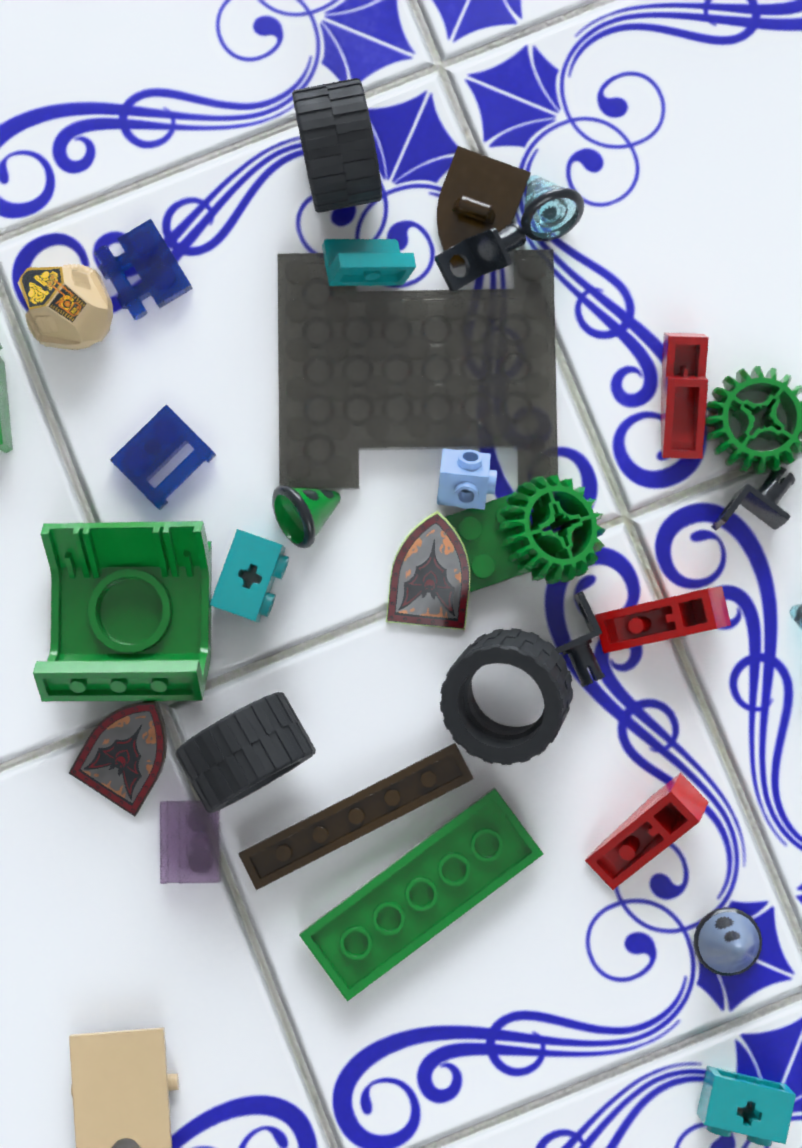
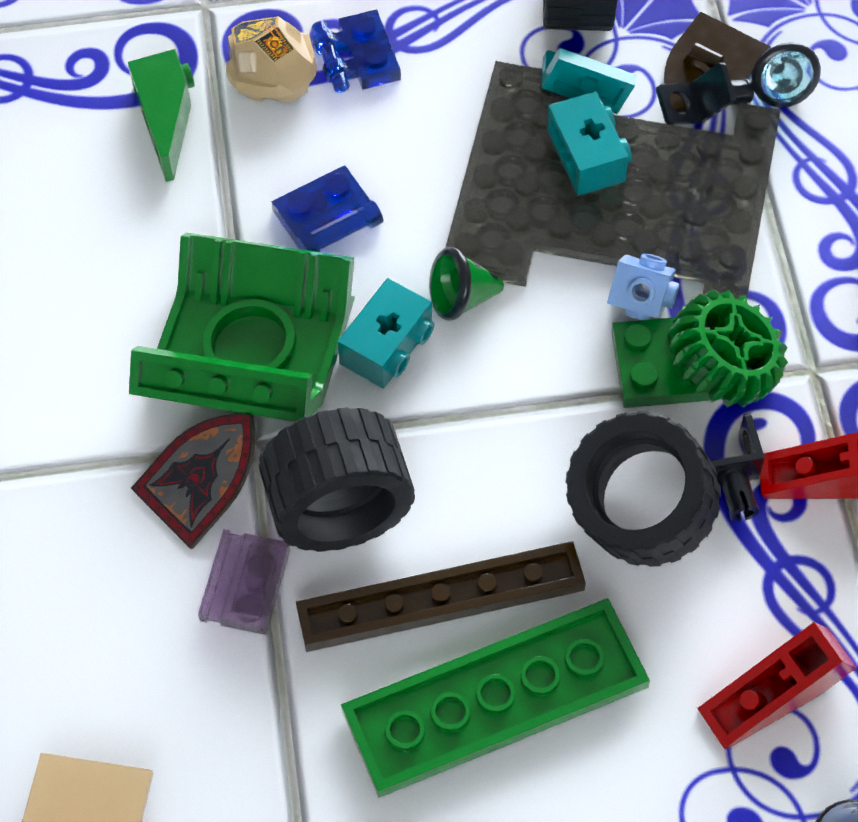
camera: 10 degrees right, 25 degrees down
(389, 365) = (588, 143): none -> teal brick
(430, 577) = (582, 371): shield -> none

